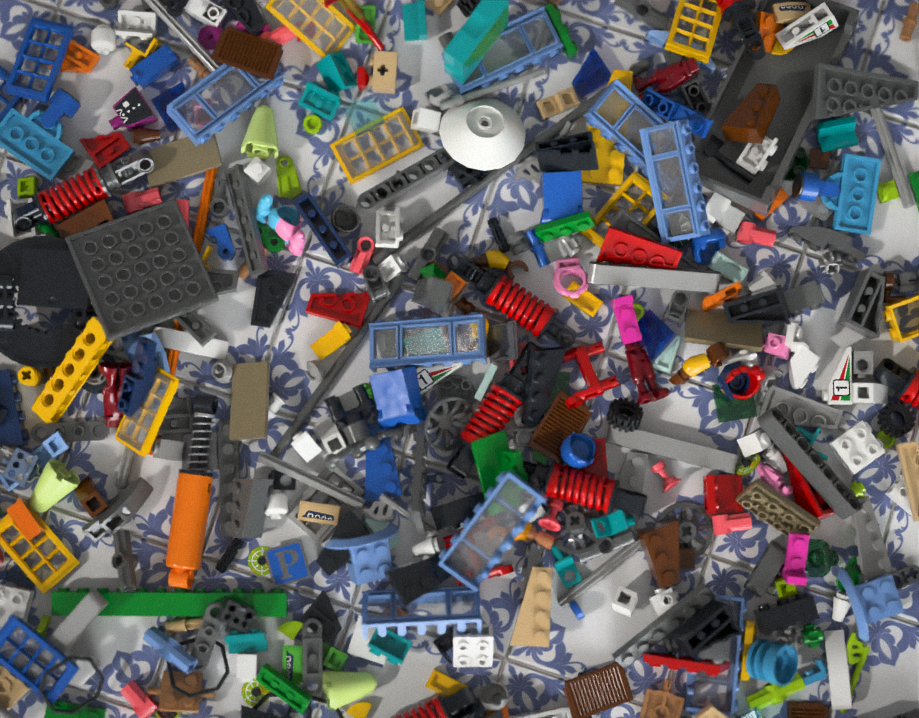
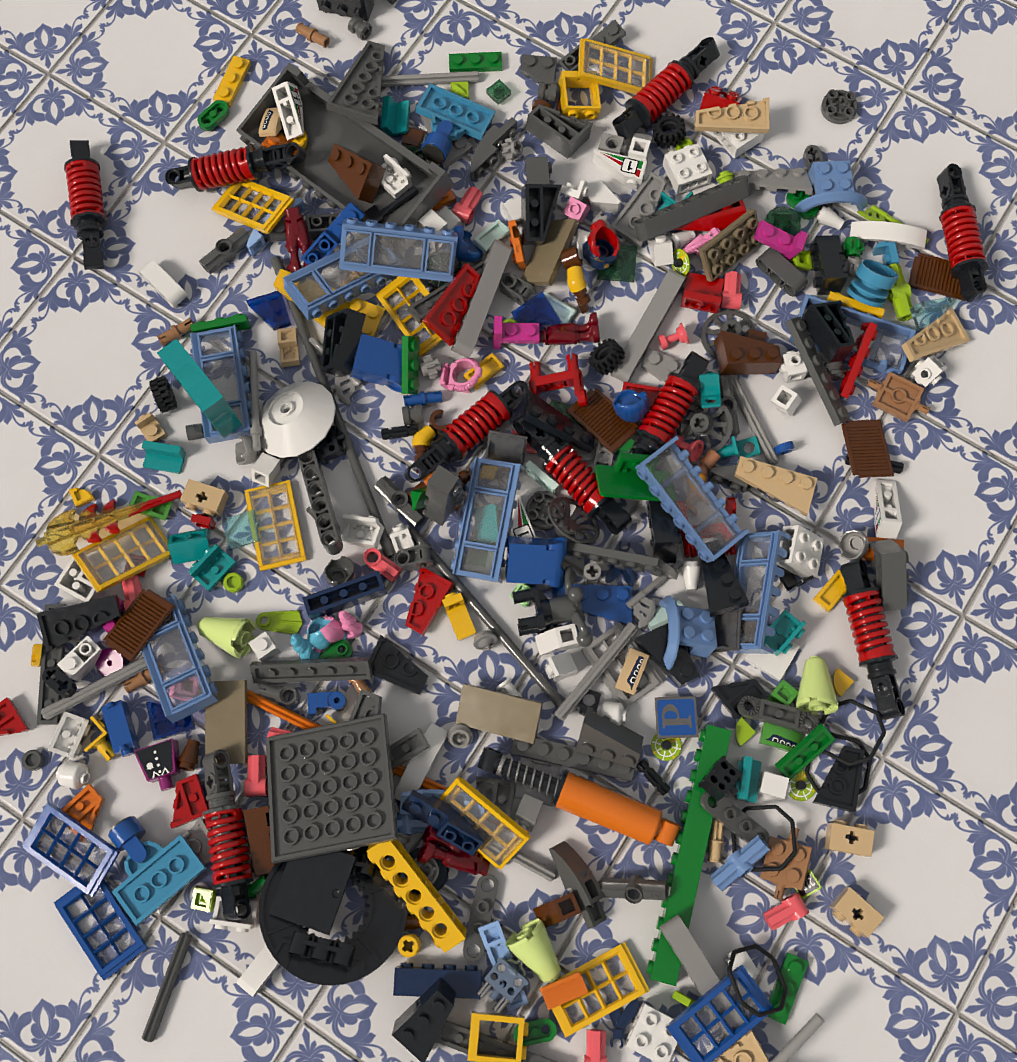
camera: 70 degrees left, 10 degrees down
(376, 593) = (728, 631): none -> flat silver piece
(398, 451) = (596, 569): none -> light grey bush
(895, 232) = (498, 92): none -> clear green plate

